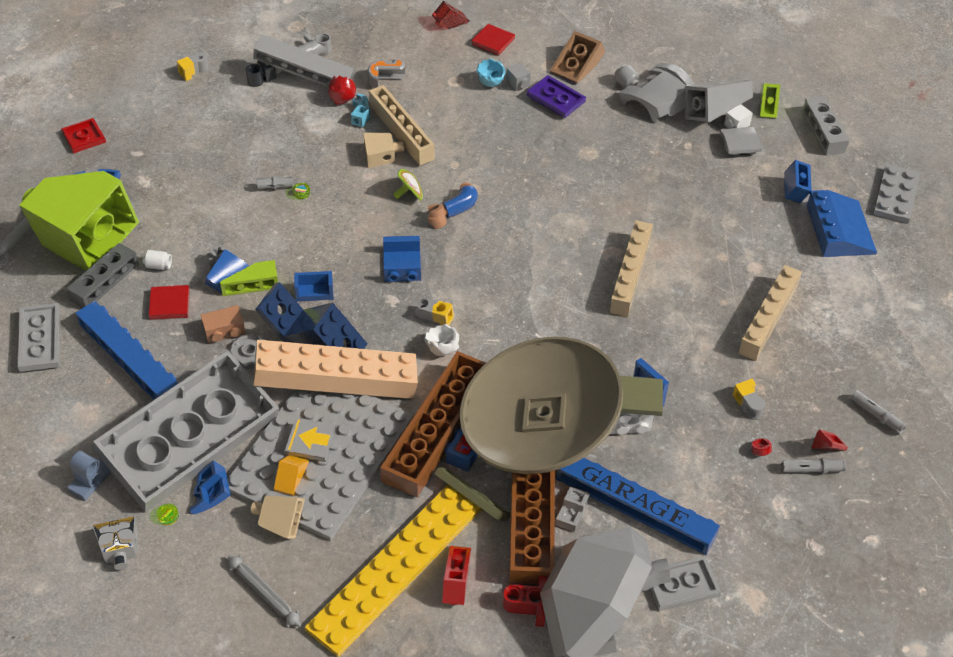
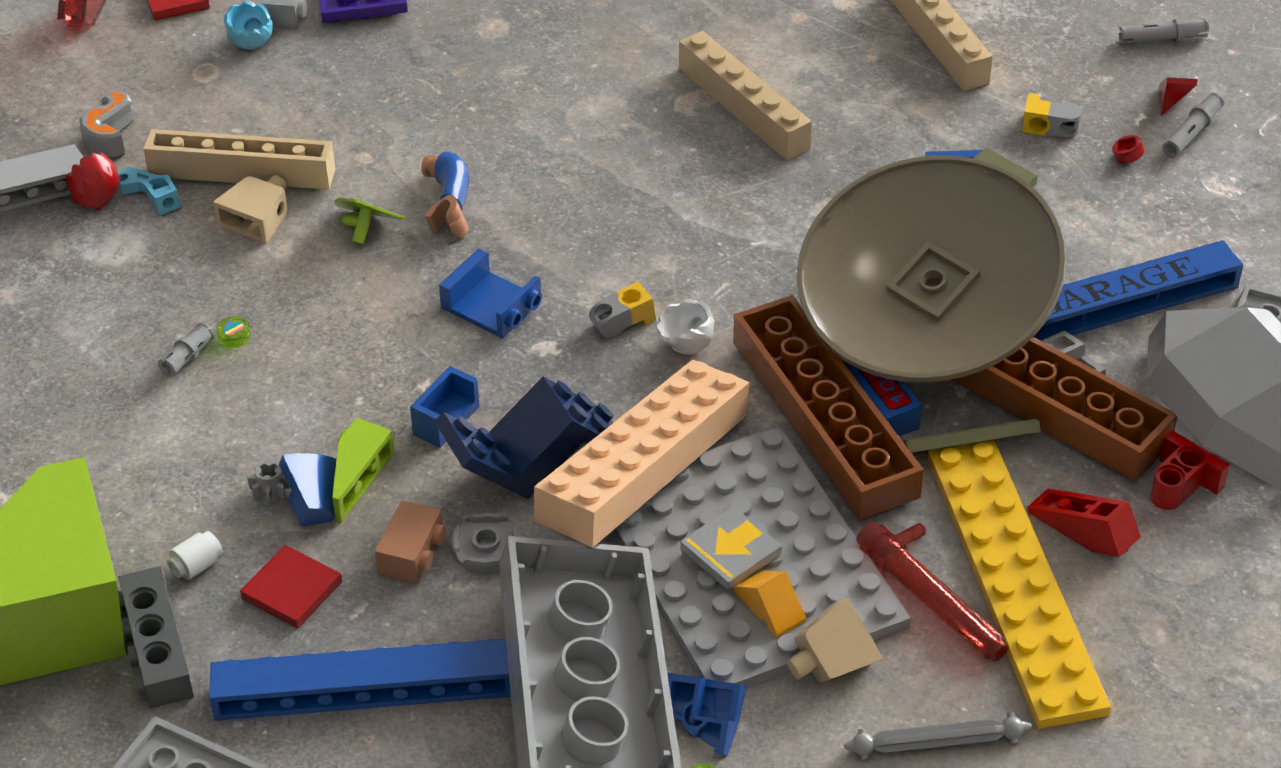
camera: 50 degrees left, 5 degrees down
(363, 508) = (892, 557): none -> clear red cylinder

